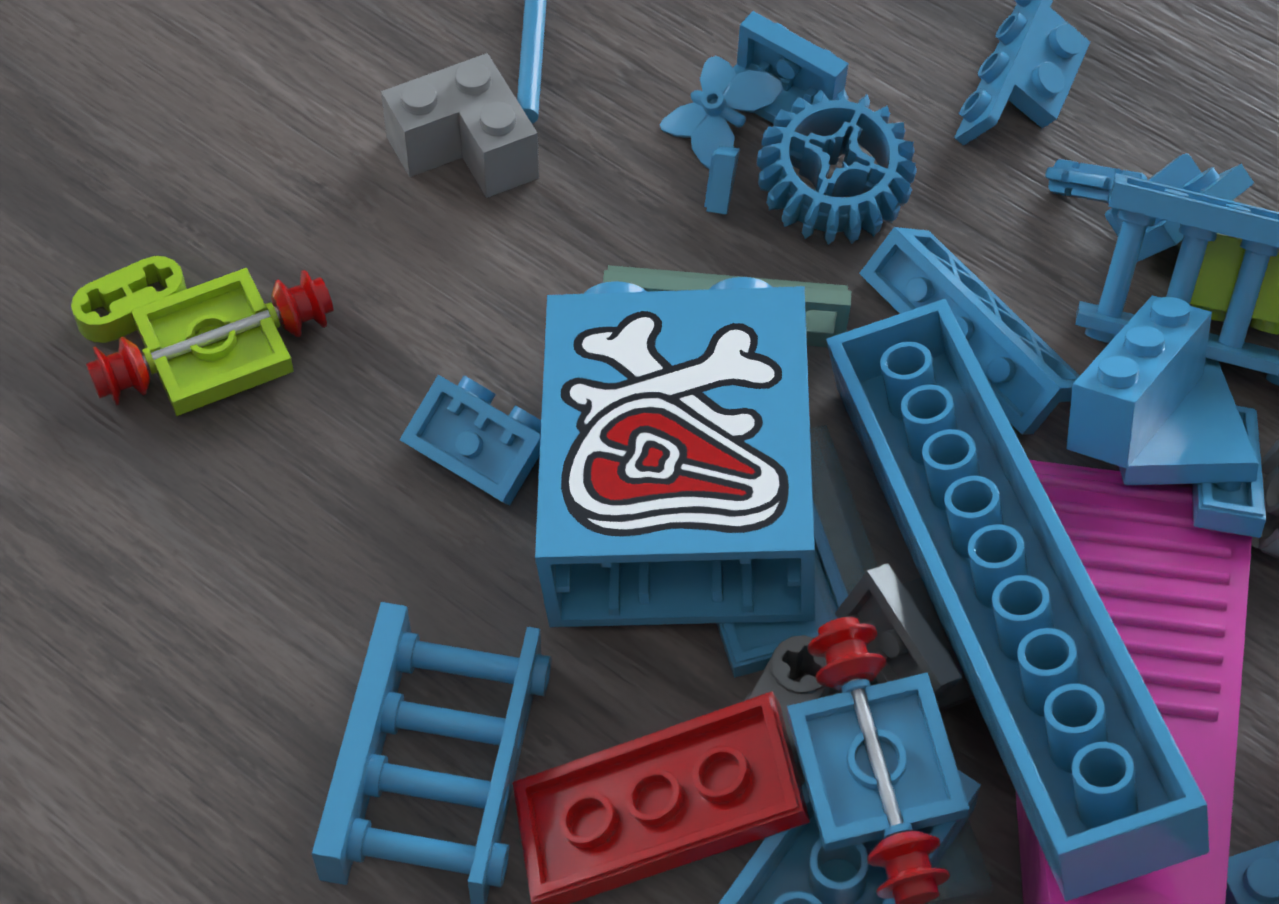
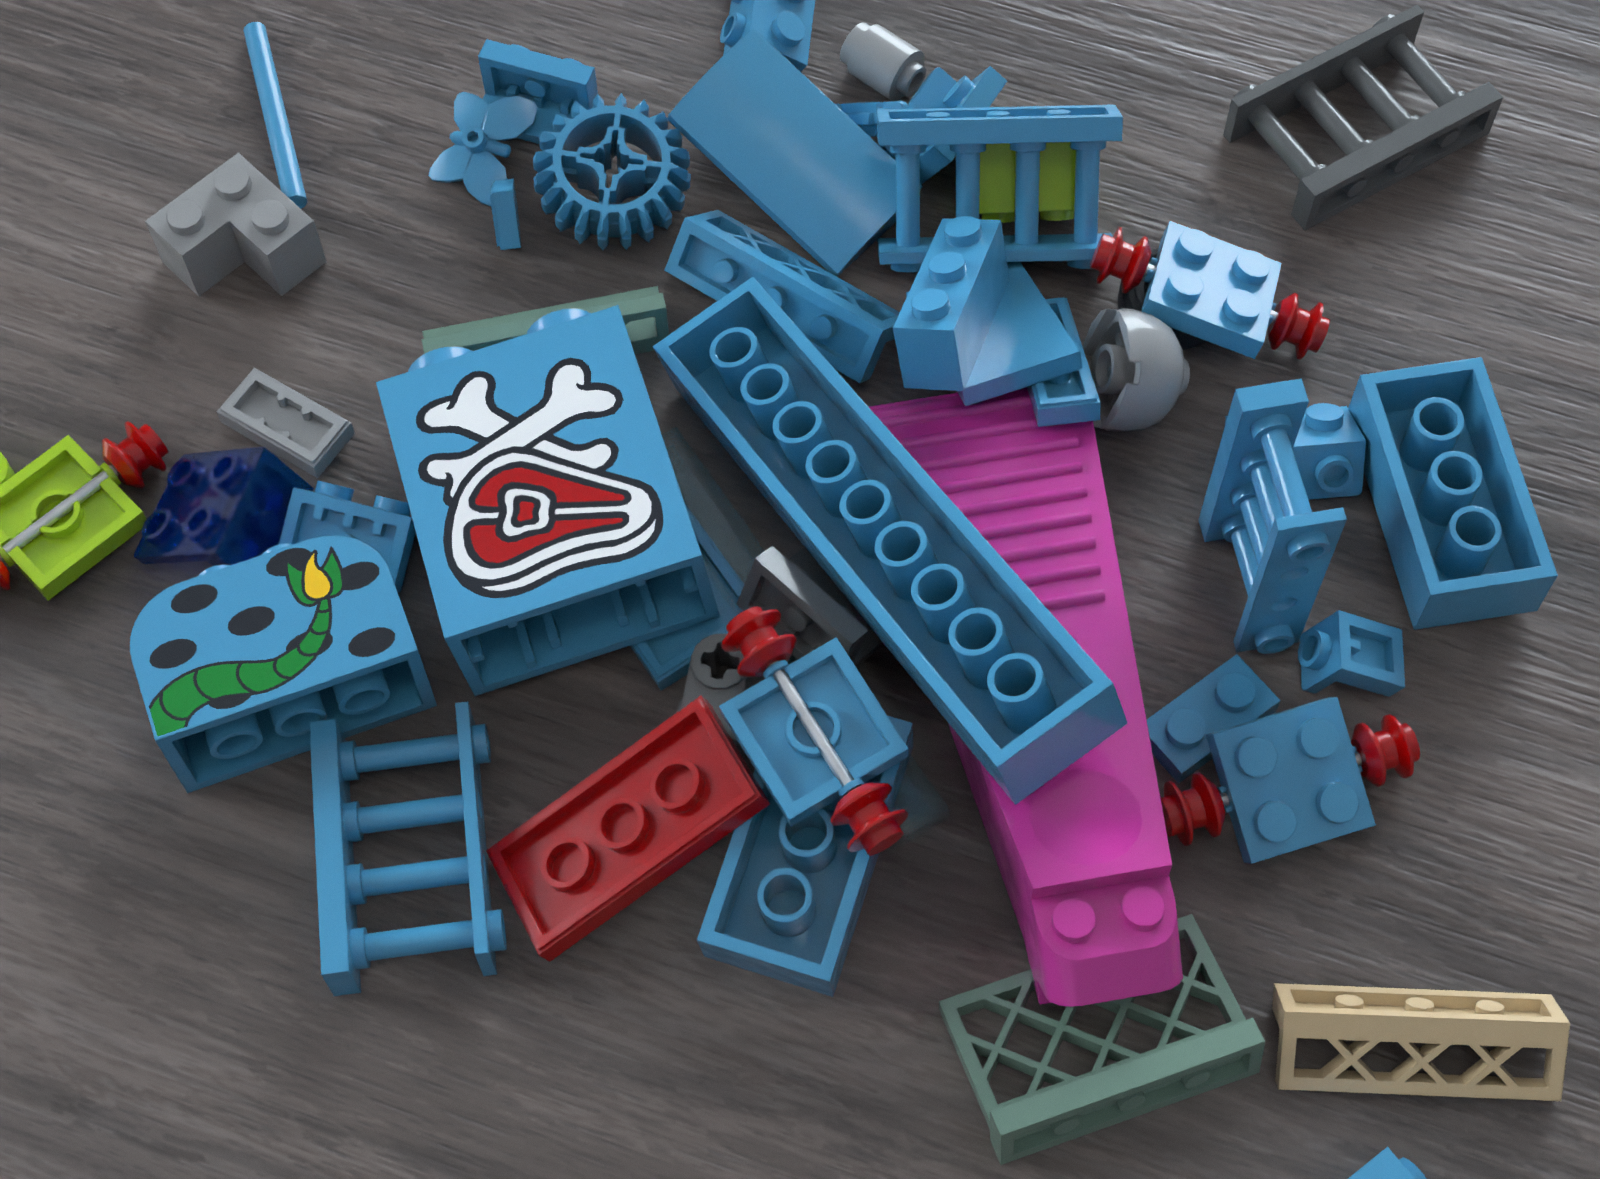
camera: 15 degrees left, 5 degrees up
(367, 381) = (219, 508): none -> clear blue bracket
(368, 518) = (266, 647): none -> dark azure brick
(452, 314) = (286, 422): none -> light grey plate
(1018, 194) = (791, 152): none -> dark azure slope
(1133, 134) = (883, 61): none -> light grey brick

